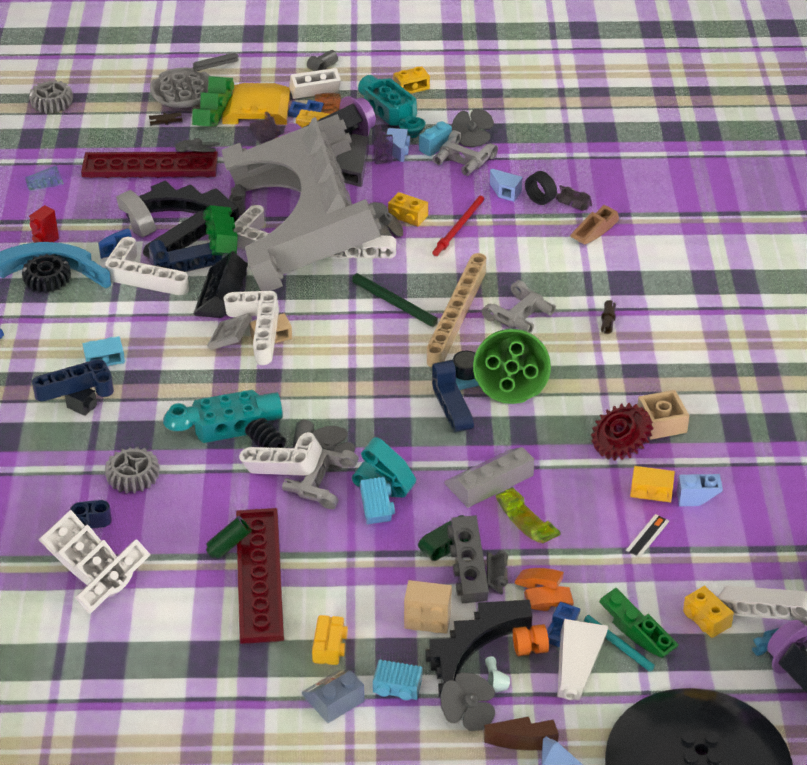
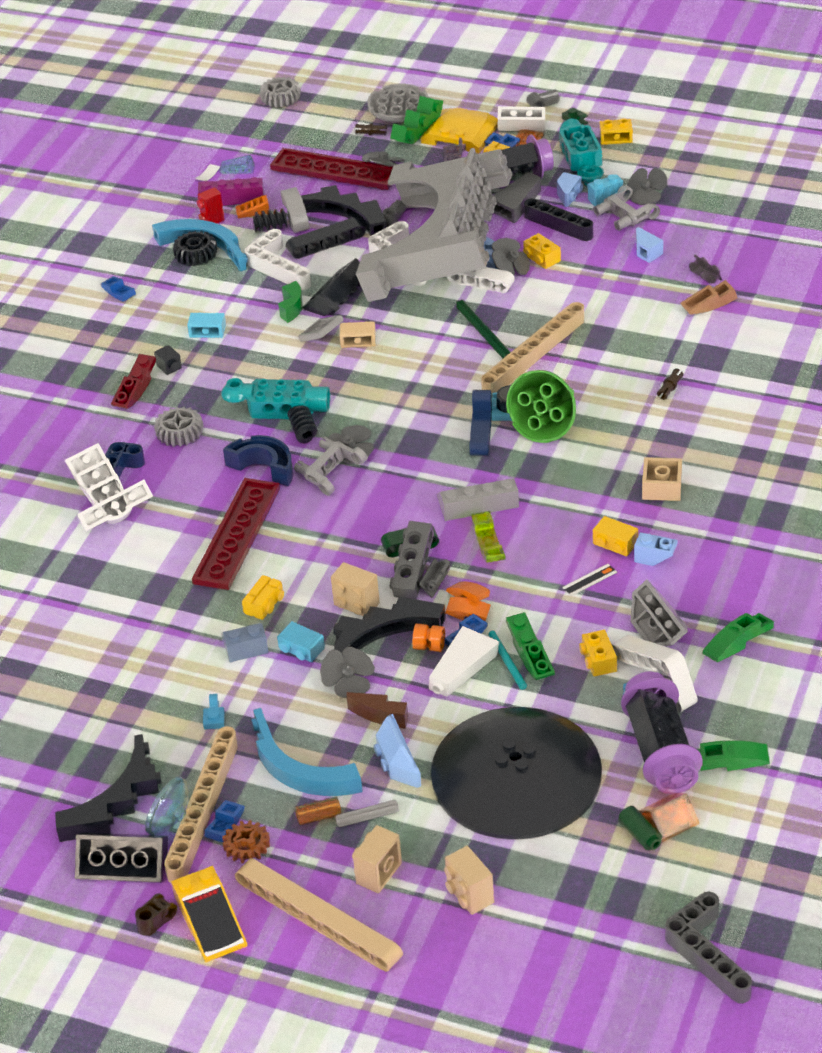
camera: 25 degrees right, 0 degrees up
(15, 192) = (208, 173): none -> white sticker
(57, 431) = (136, 382): none -> dark red slope
(66, 205) = (235, 191): none -> magenta brick
(74, 379) = (163, 341): dark blue beam -> none
(85, 219) = (249, 208): none -> orange slope
(109, 243) = (258, 231): blue slope -> none
(111, 226) = (269, 219): none -> black piece
(181, 306) = (292, 302): none -> green brick
(182, 259) = (316, 257): dark blue beam -> none
(216, 61) = (441, 83): dark grey axle -> none
(220, 230) = (356, 237): green brick -> none
(228, 538) = (223, 497): dark green brick -> none
(245, 476) = (264, 451): none -> dark blue brick
(266, 308) = (355, 315): white beam -> none
(284, 461) = (310, 447): white beam -> none
(302, 427) = (336, 425): dark grey cone -> none
(360, 71) = (574, 113): none -> dark green plate
(376, 501) = (363, 495): medium azure brick -> none
(382, 146) = (548, 187): clear purple bracket -> none
(383, 461) = (382, 471): teal connector -> none
(406, 175) = (558, 219): none -> black beam
(443, 243) = (558, 287): red bar -> none
(496, 679) = (384, 663): light aqua bar -> none
(516, 316) = (582, 366): light grey connector -> none
(535, 193) = (675, 253): black tyre -> none
(622, 431) = (614, 485): dark red gear -> none
(743, 561) = (655, 617): none -> light grey wedge

